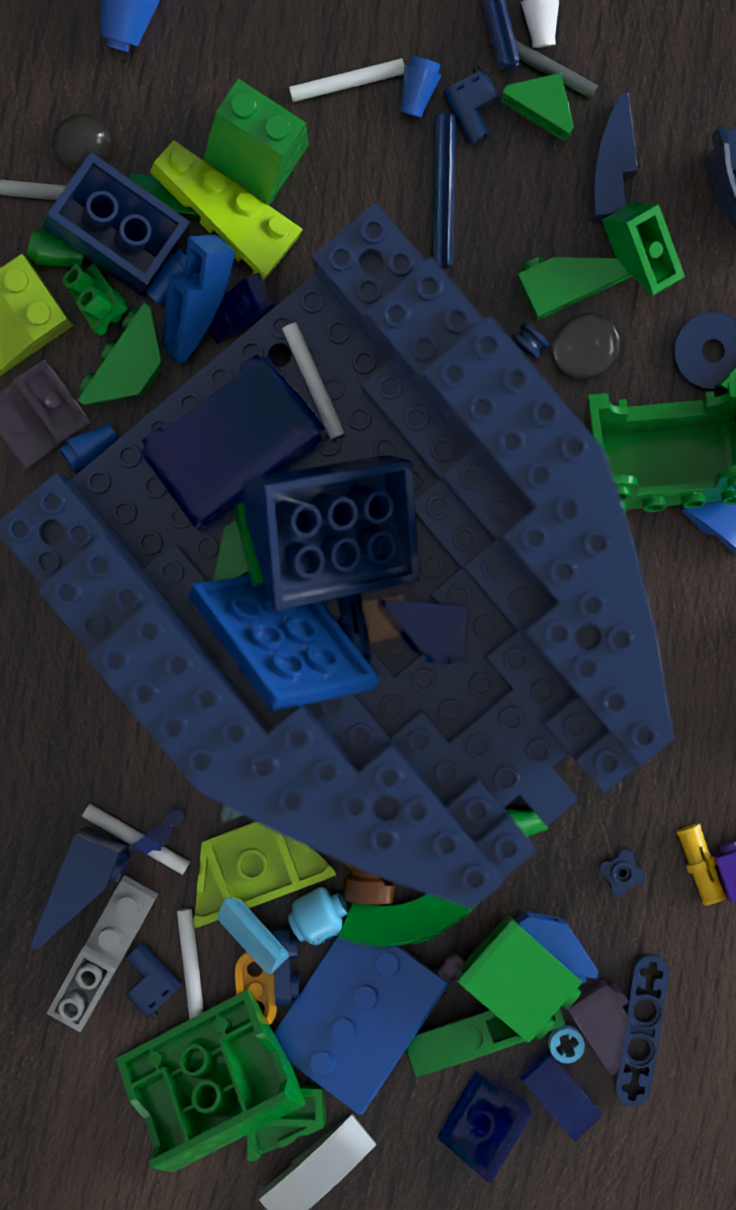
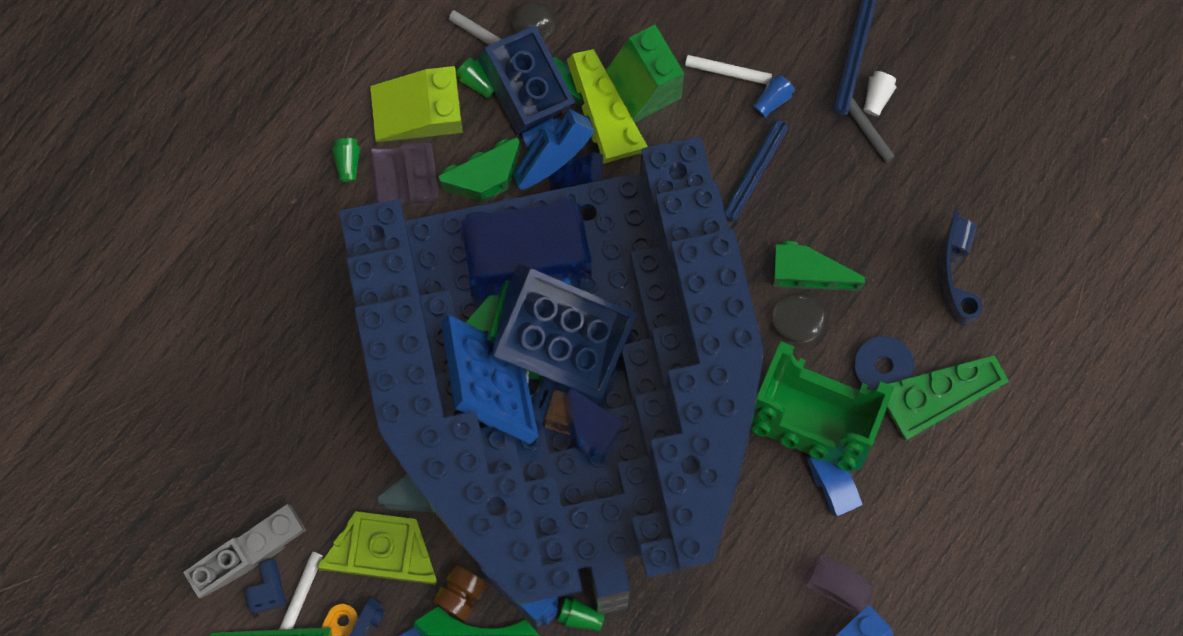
camera: 30 degrees right, 15 degrees down
(86, 447) = (424, 208): blue cone -> none
(87, 871) = (257, 492): dark blue slope -> none
(95, 296) = (487, 119): green hips -> none
(131, 836) = (312, 488): white bar -> none
(158, 836) = (328, 493): clear blue piece -> none
(252, 934) = (354, 589): medium azure slope -> none
(313, 380) = (600, 237): white bar -> none
(318, 915) = (407, 604): medium azure head -> none
(466, 101) = (804, 121): dark blue piece -> none
(530, 340) = (762, 294): dark blue bush -> none
(543, 103) = (850, 146): green slope -> none
(613, 162) = (877, 209): dark blue slope -> none
(644, 245) = (869, 267): green slope -> none

